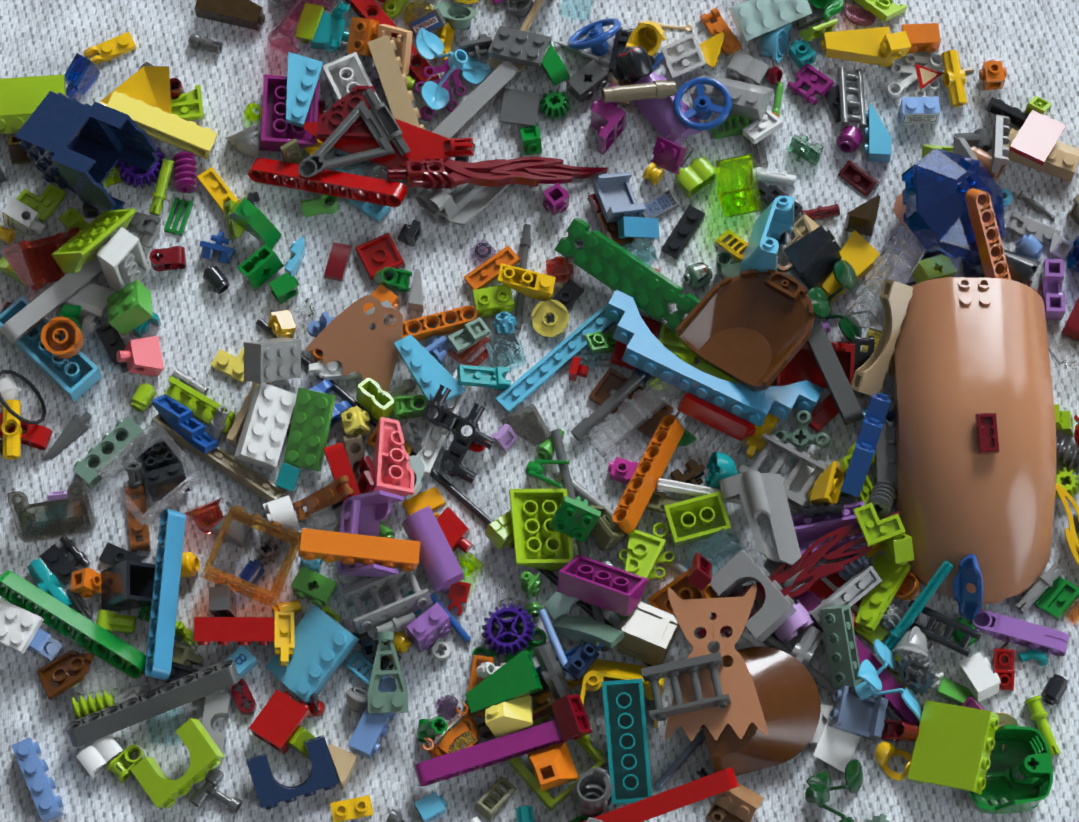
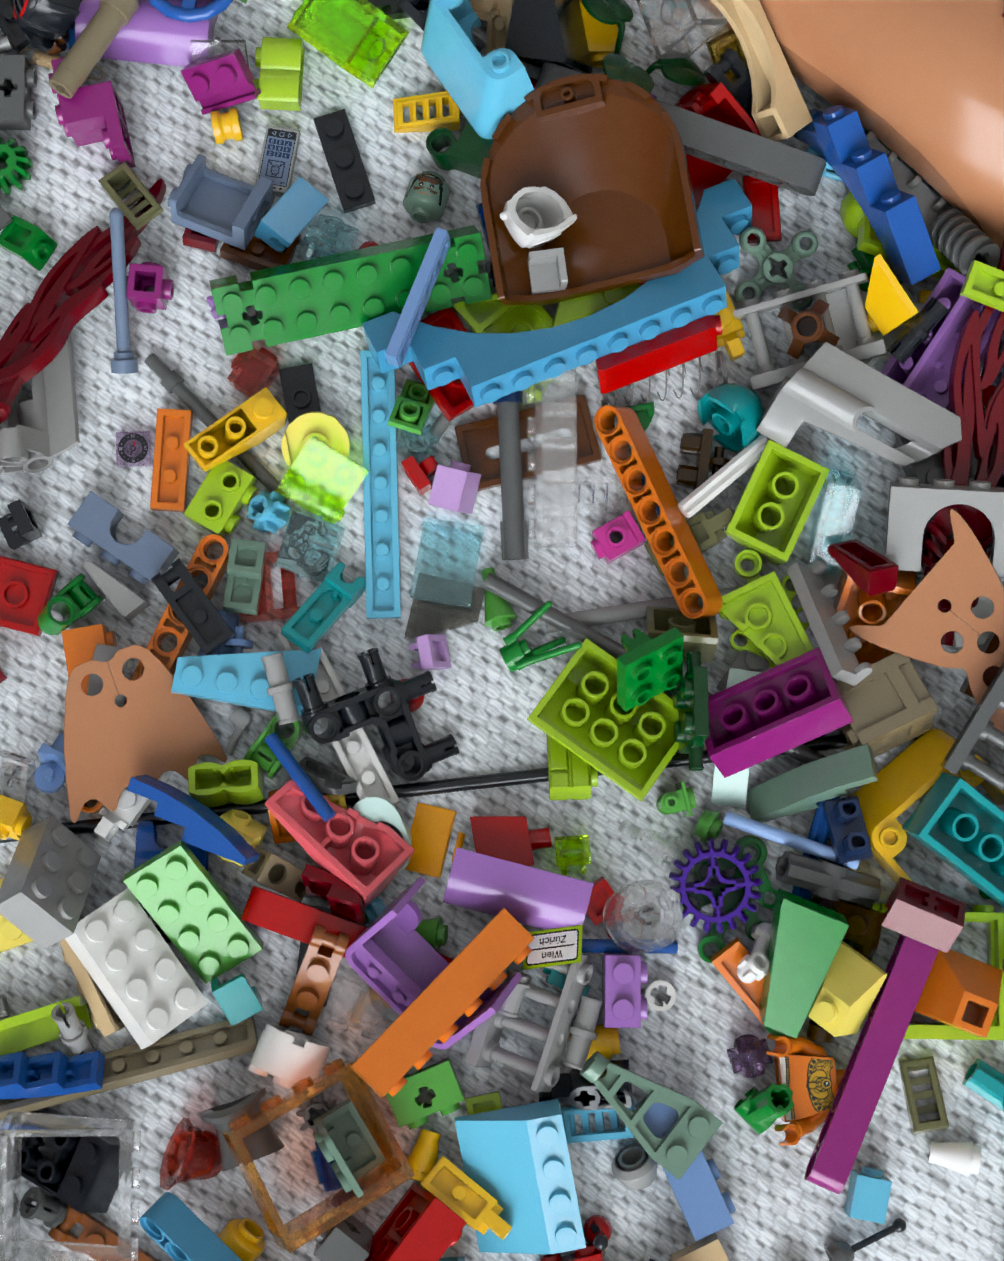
camera: 50 degrees left, 15 degrees up
(266, 567) = (348, 1141): none -> sand green bracket
(349, 396) = (201, 824): none -> blue slope
(387, 582) = (513, 1002): none -> light grey pin
(403, 423) = (300, 777): none -> blue bar
(421, 580) = (555, 947): none -> sticker
(433, 383) = (280, 688): none -> light grey pin
(436, 324) = (194, 608): none -> black plate
(442, 292) = (97, 524): none -> sand blue arch
(472, 599) = (658, 905): none -> clear brick
(517, 215) = (124, 359): none -> sand blue piece
(537, 332) = (322, 480): none -> clear neon green hinge
(549, 411) = (447, 562): none -> clear light blue piece
(570, 550) = (693, 713): none -> dark green plate
(583, 387) = (455, 487): none -> lavender brick
(590, 151) = (116, 180): none -> olive slope
(645, 298) = (418, 297): none -> medium blue tile
(662, 576) = (828, 623): none -> light grey hinge
(706, 340) = (547, 271): none -> light grey panel
(723, 315) = (536, 216): none -> white helmet
(783, 465) = (807, 327): none -> reddish brown rock

